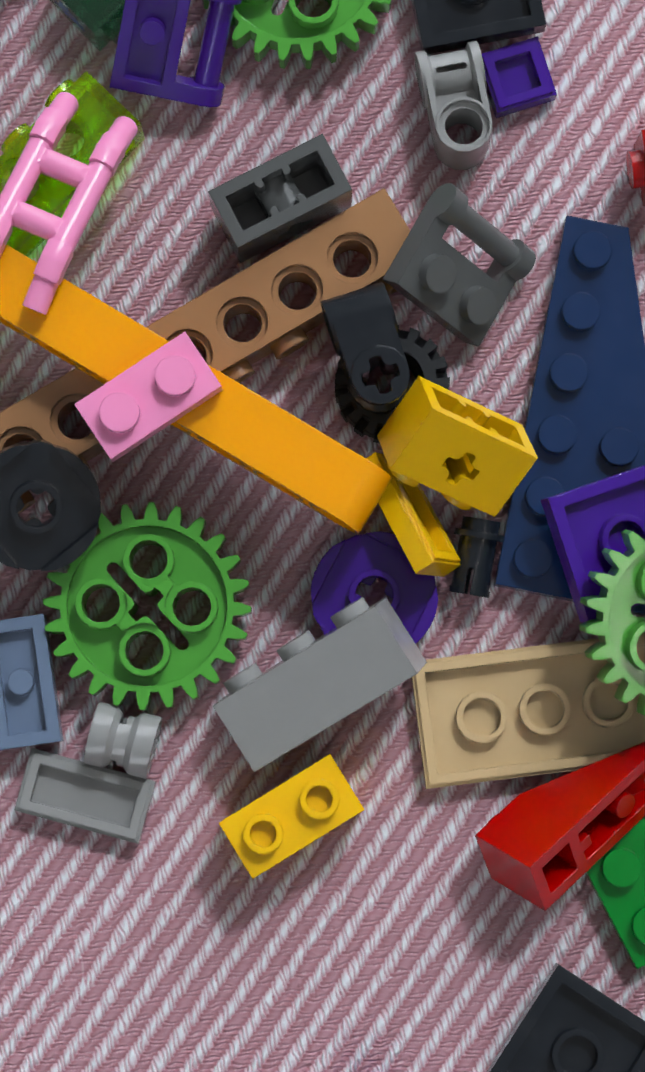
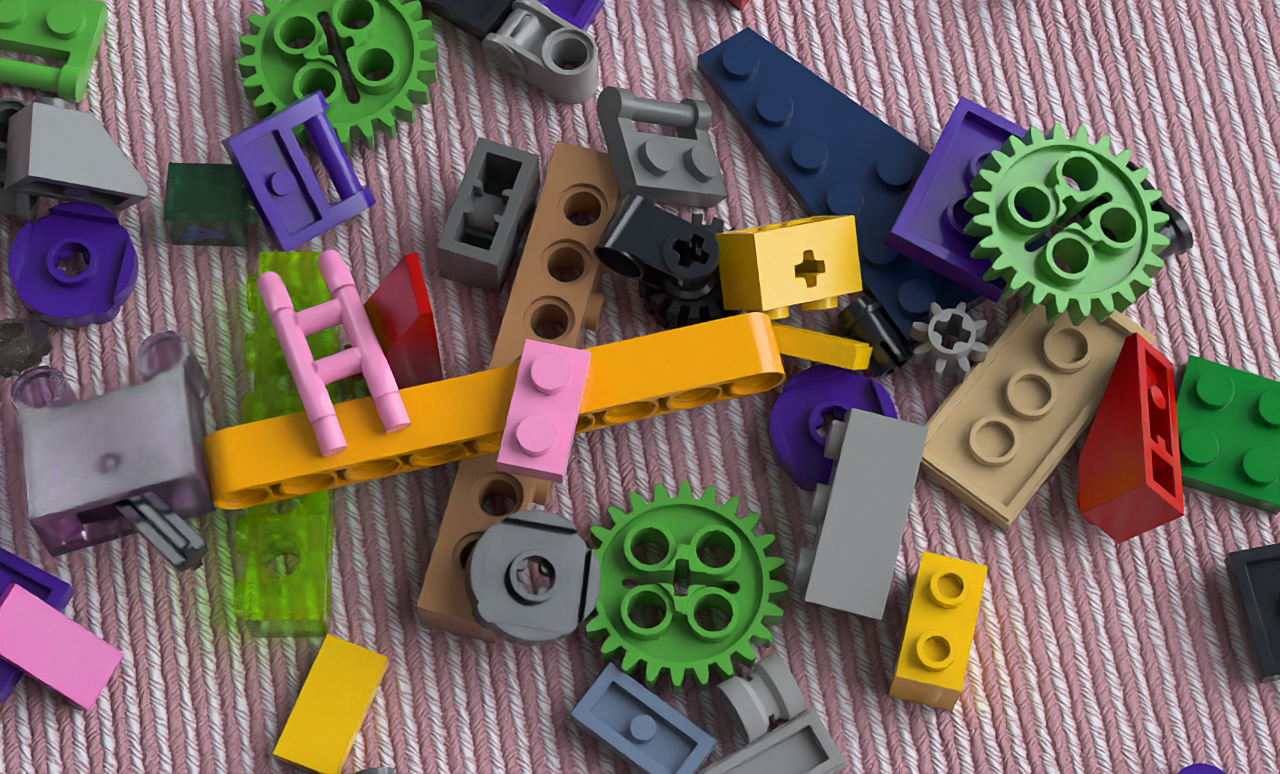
camera: 45 degrees left, 15 degrees down
(125, 234) = (405, 326): none -> red slope
(524, 598) = (954, 323): none -> light grey gear

